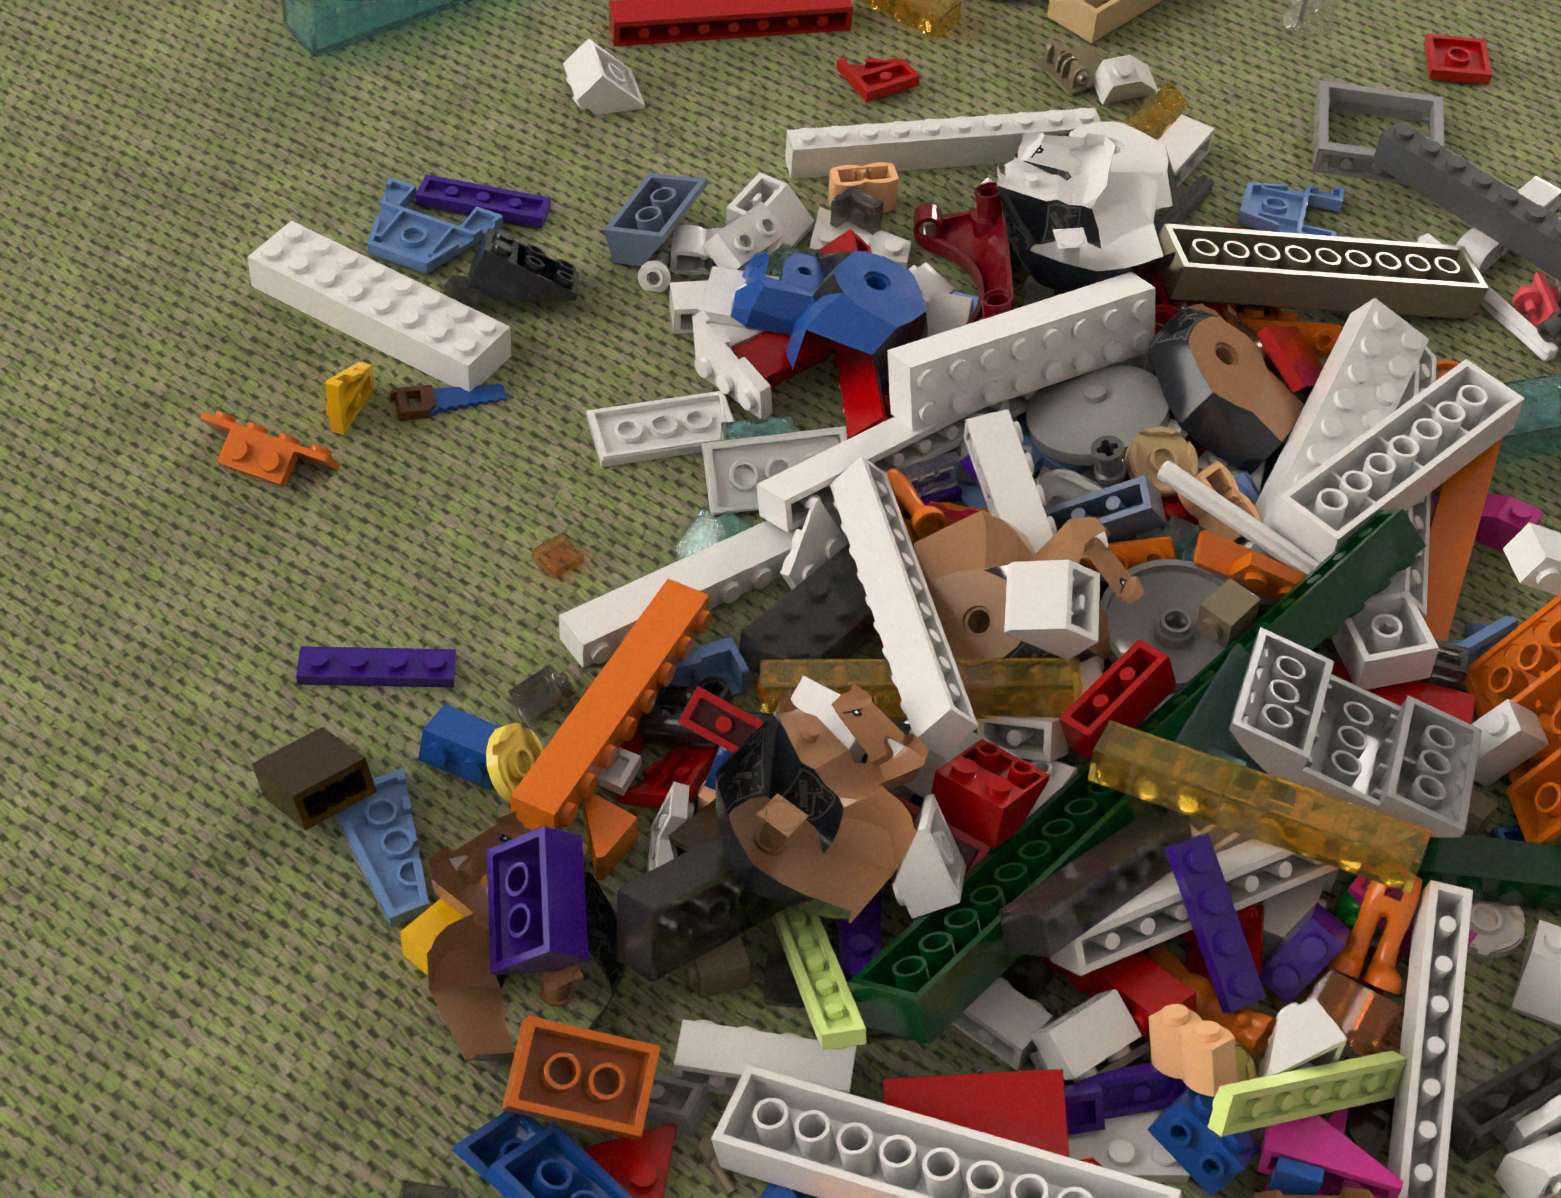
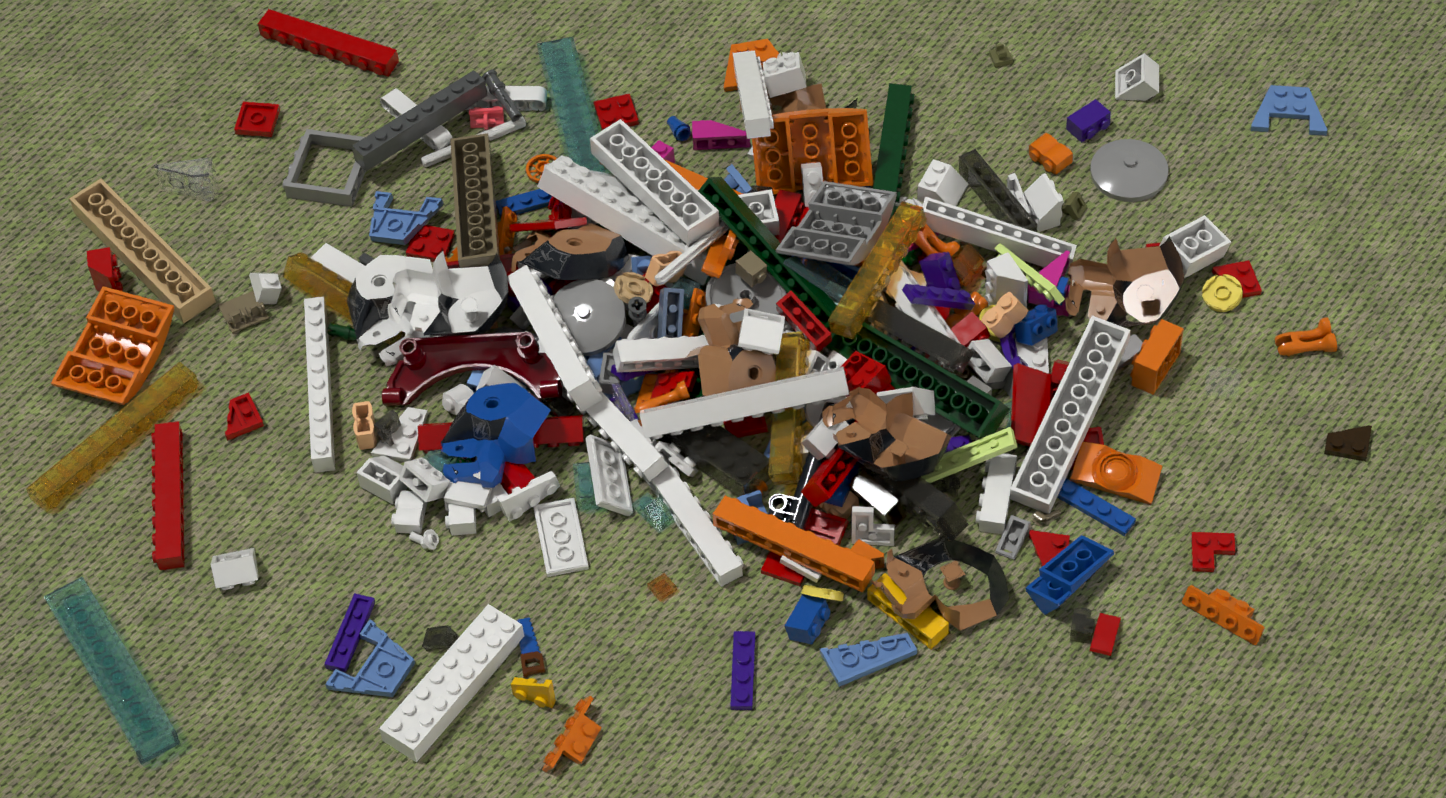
camera: 80 degrees left, 5 degrees up
(314, 778) = (832, 685): dark brown brick -> none
(520, 271) = (430, 605): black slope -> none
(537, 903) = (927, 570): dark purple slope -> none
(542, 695) = (769, 589): clear smoke bracket -> none
(581, 1078) = (1023, 552): orange brick -> none
(650, 216) = (389, 530): sand blue slope -> none

